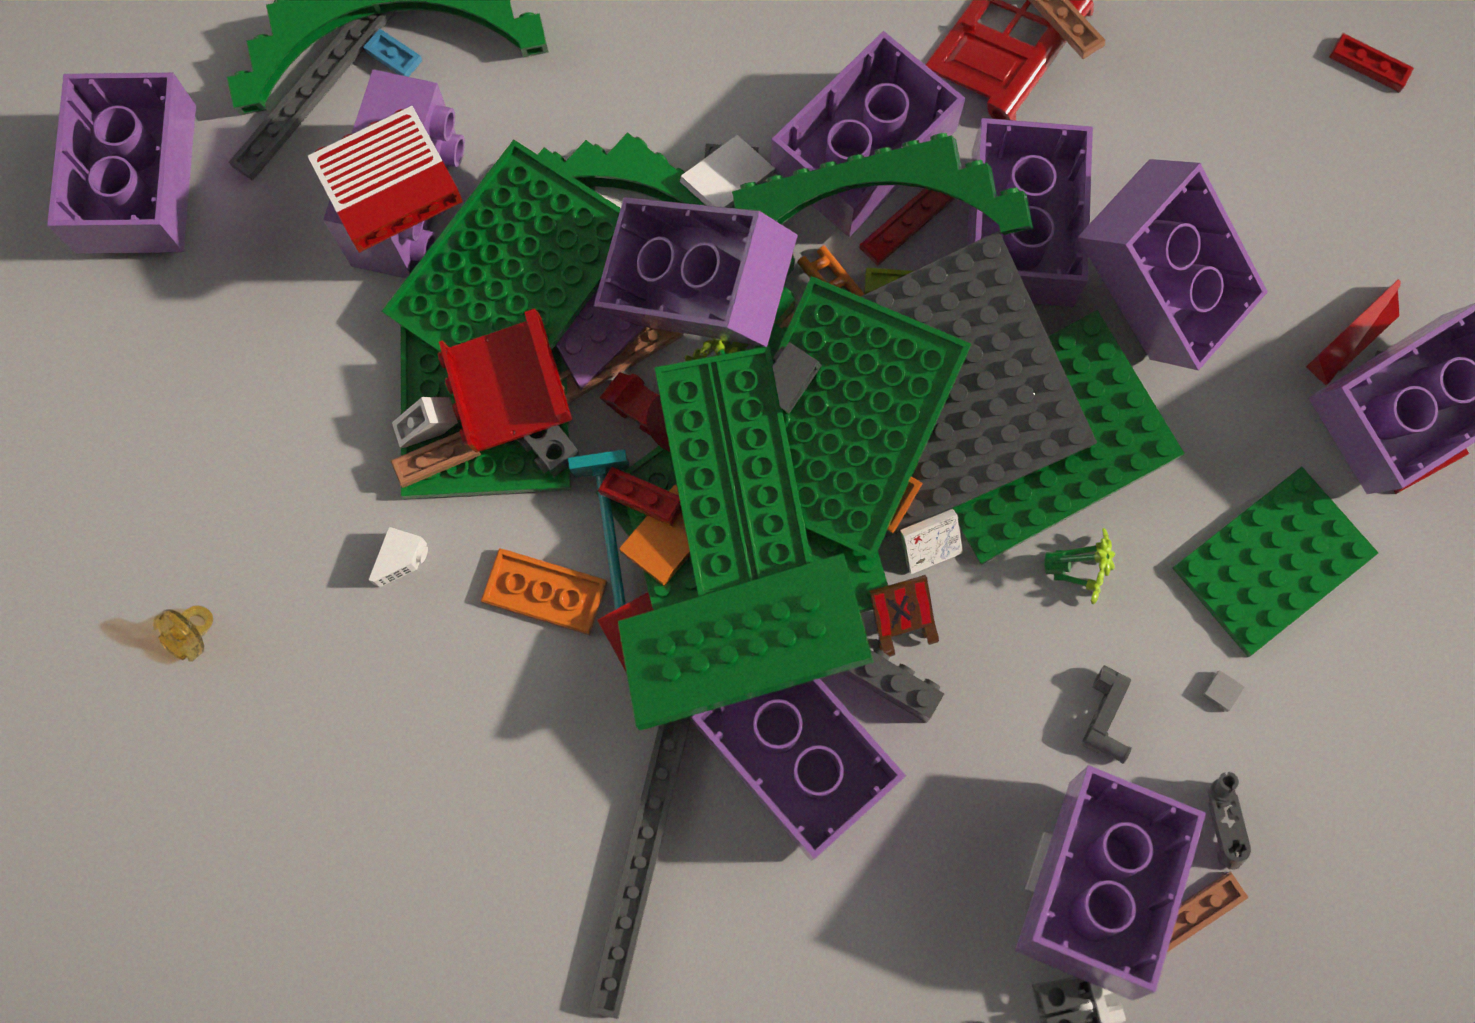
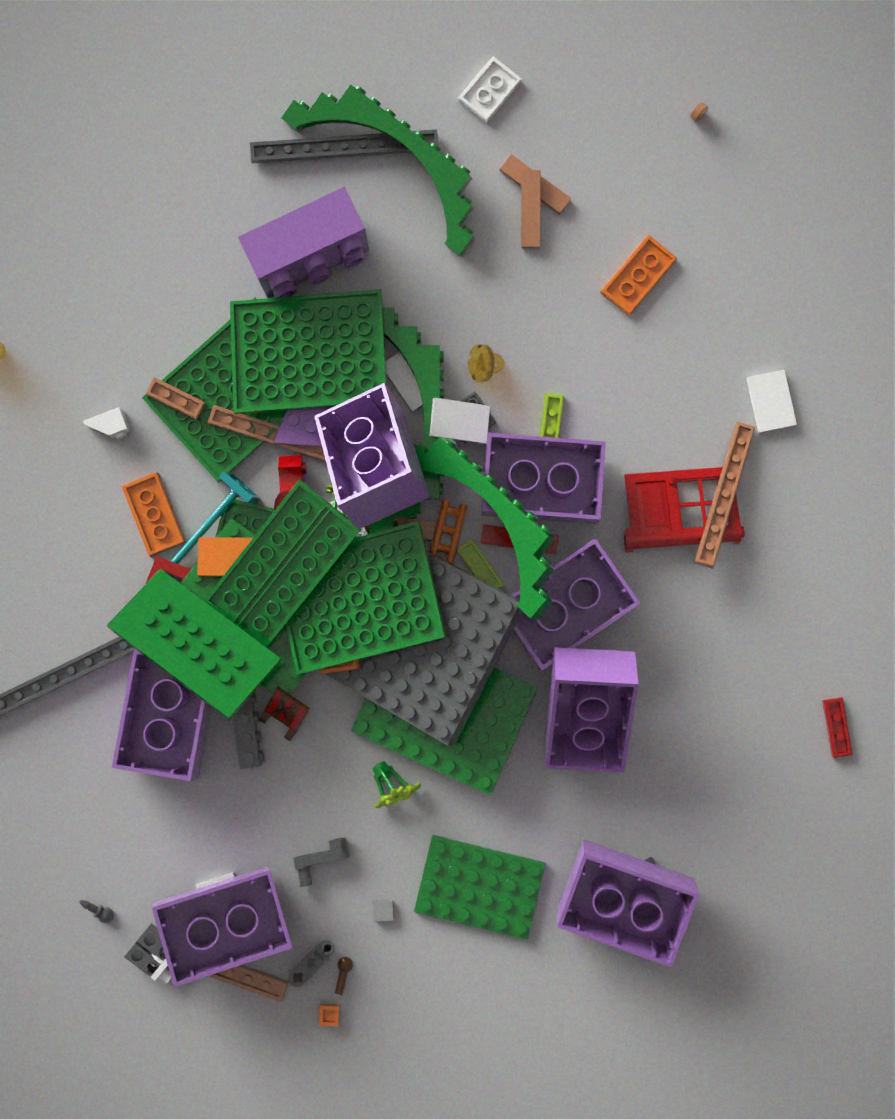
camera: 50 degrees right, 10 degrees up
(122, 163) = (196, 91): medium lavender brick -> none
(385, 178) = (283, 250): panel -> none
(392, 53) = (387, 173): dark azure plate -> none
(424, 420) = (188, 377): white slope -> none
(505, 384) = (238, 403): red panel -> none
(552, 440) = (234, 451): dark grey brick -> none
(641, 496) = (235, 524): red tile -> none
(683, 108) = (482, 363): none -> clear yellow tile
(793, 374) = (355, 554): dark grey slope -> none
(794, 85) = (551, 415): none -> lime tile
(931, 541) = (338, 696): white tile -> none
(1257, 787) = (344, 965): none -> reddish brown bar
(1307, 851) = (328, 1015): none -> orange plate
(1357, 336) = (650, 839): red wedge -> none

